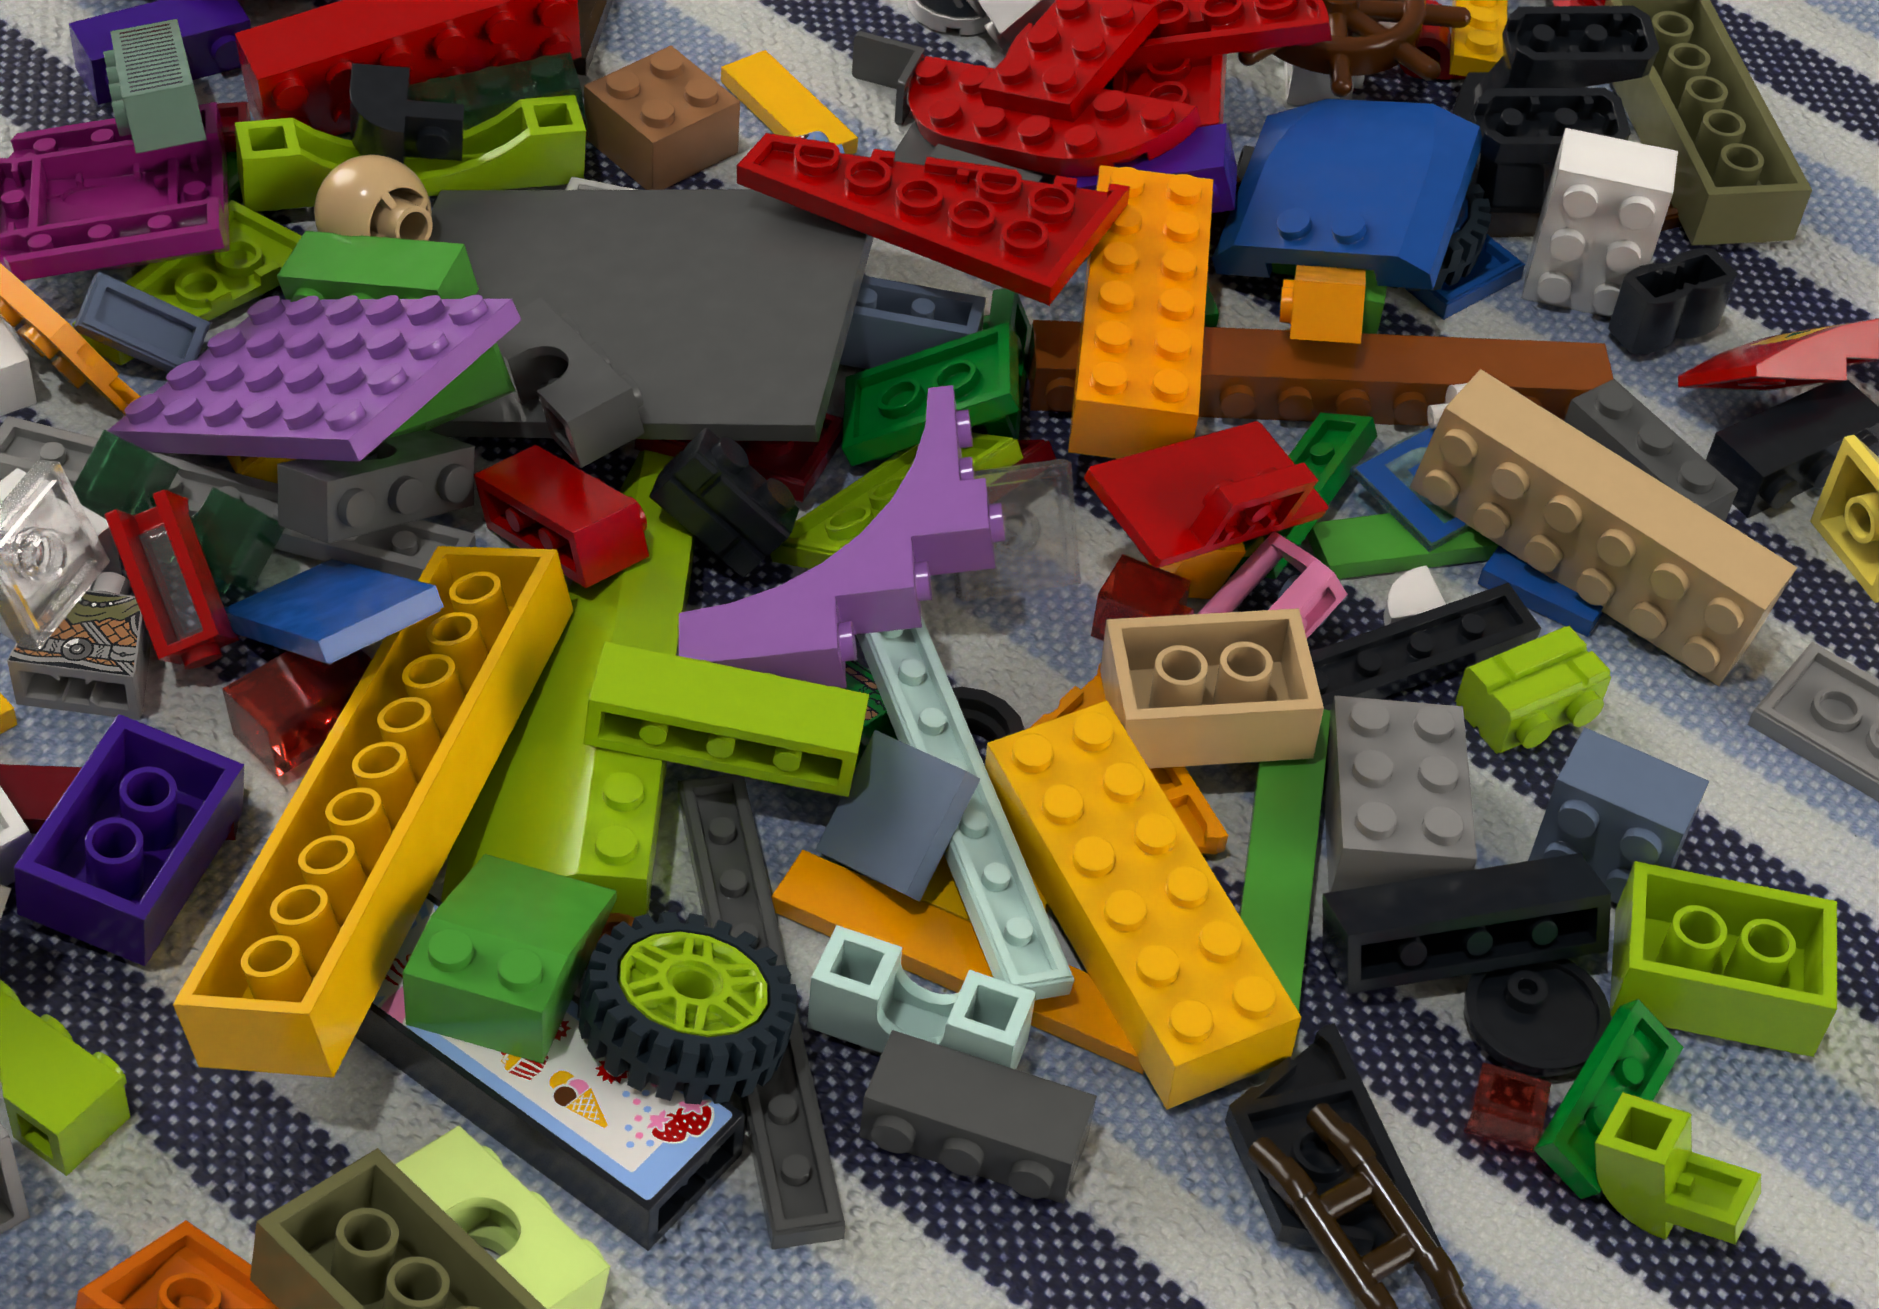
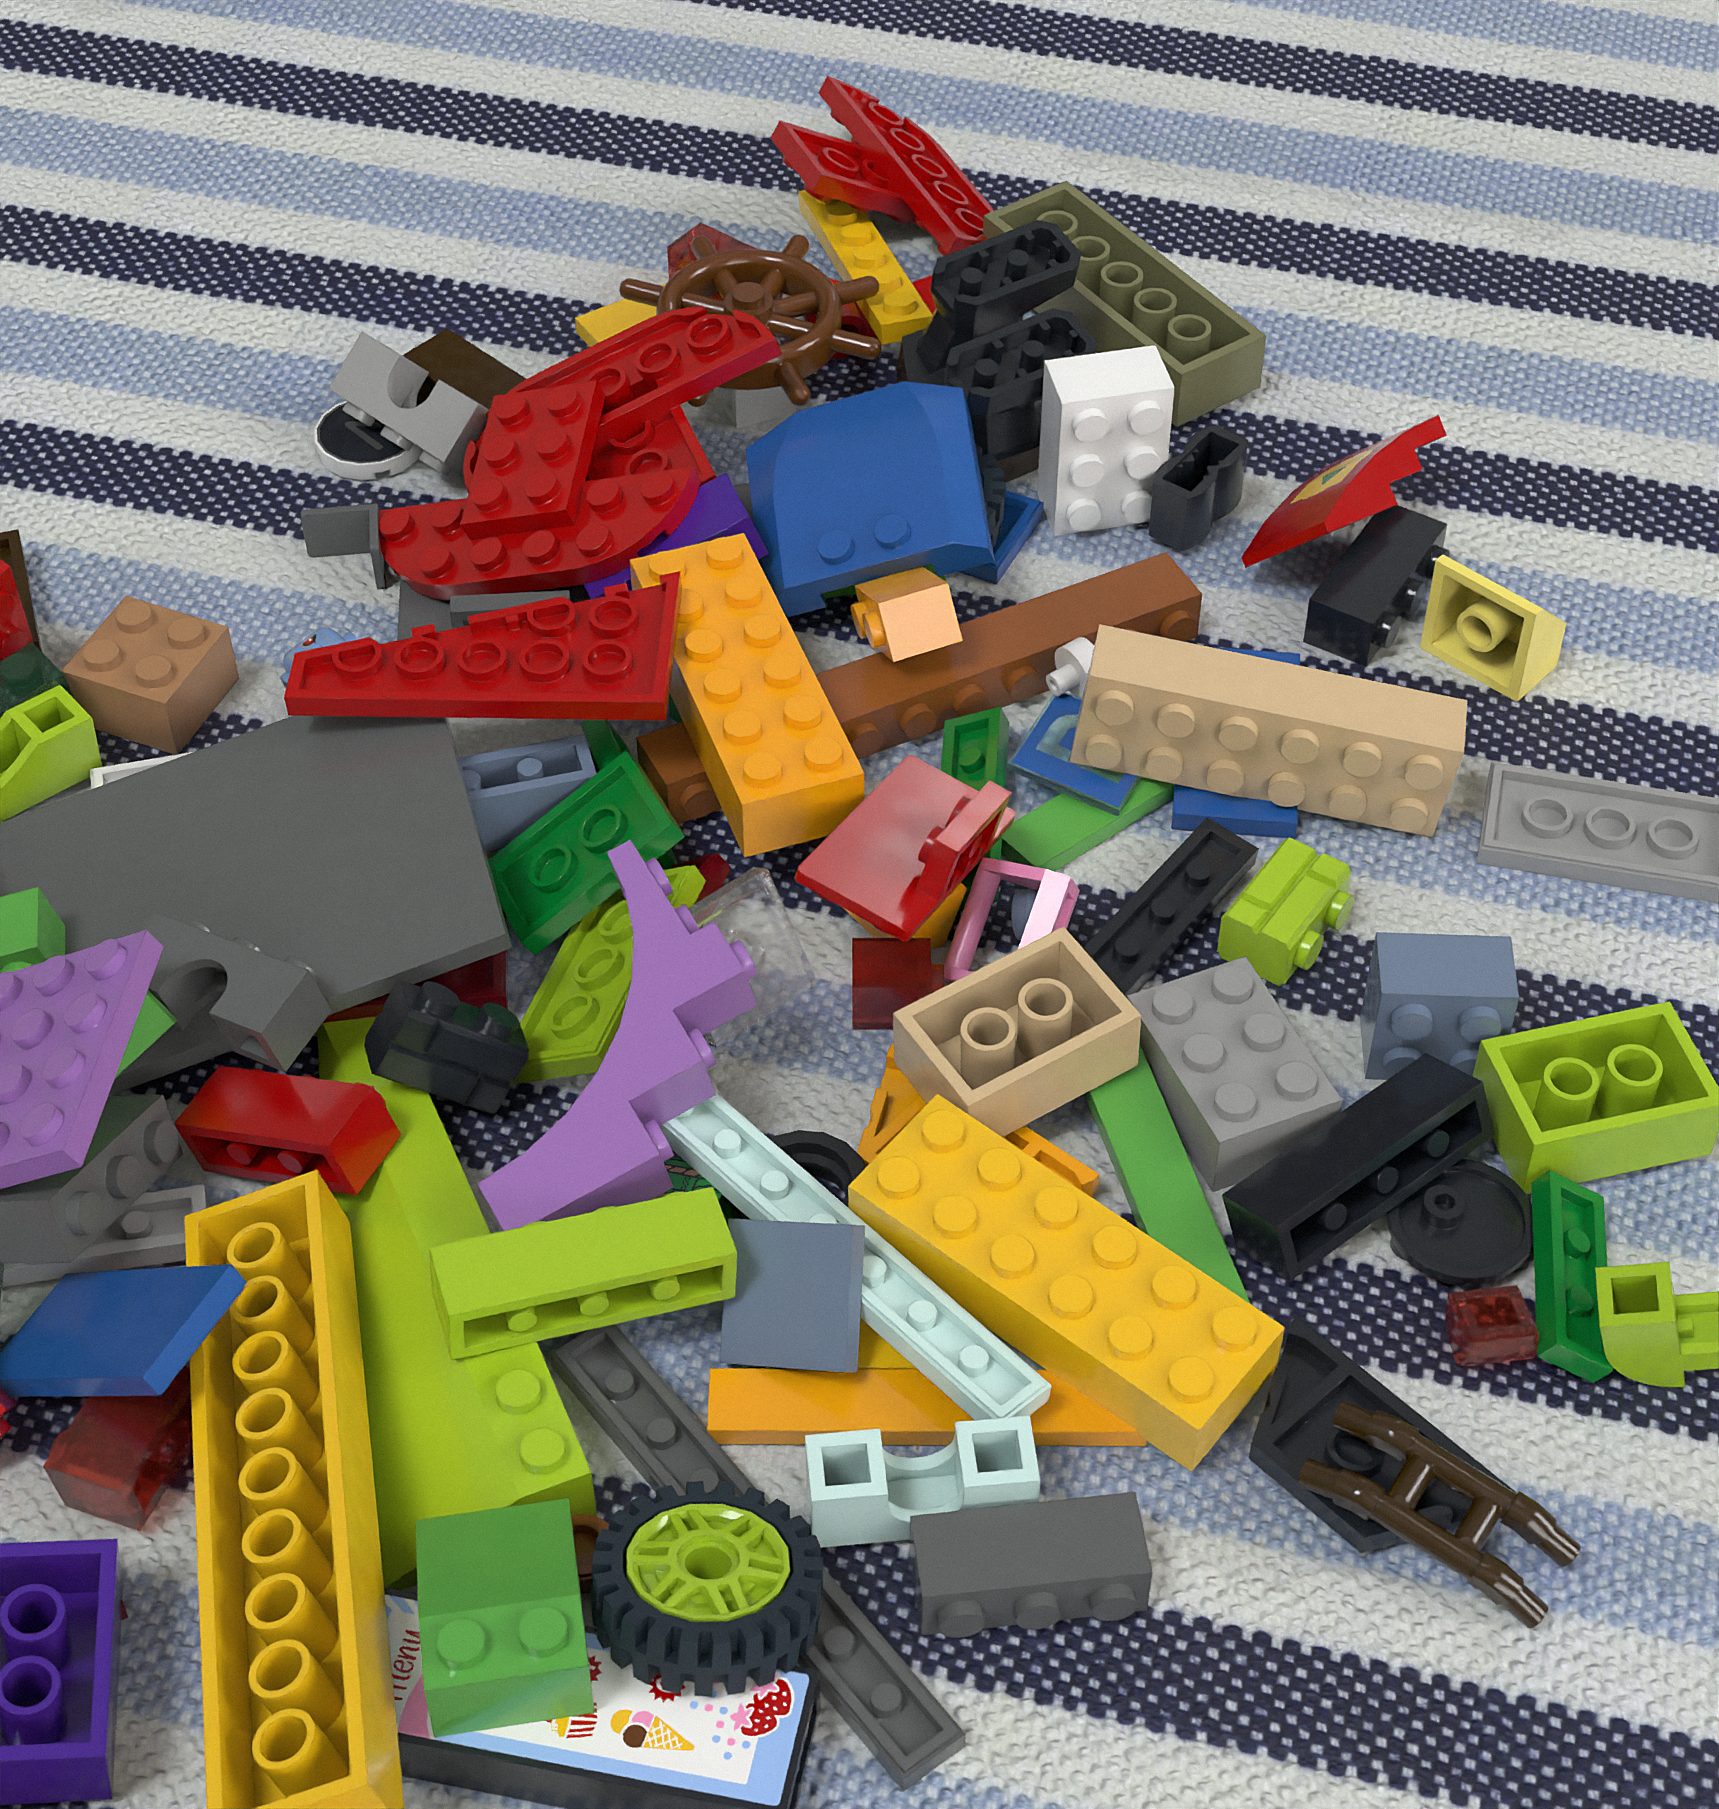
camera: 20 degrees left, 0 degrees up
(782, 100) = (259, 609): yellow tile -> none
(1412, 595) = (1126, 868): white tile -> none
(1637, 435) = (1247, 628): dark grey arch -> none

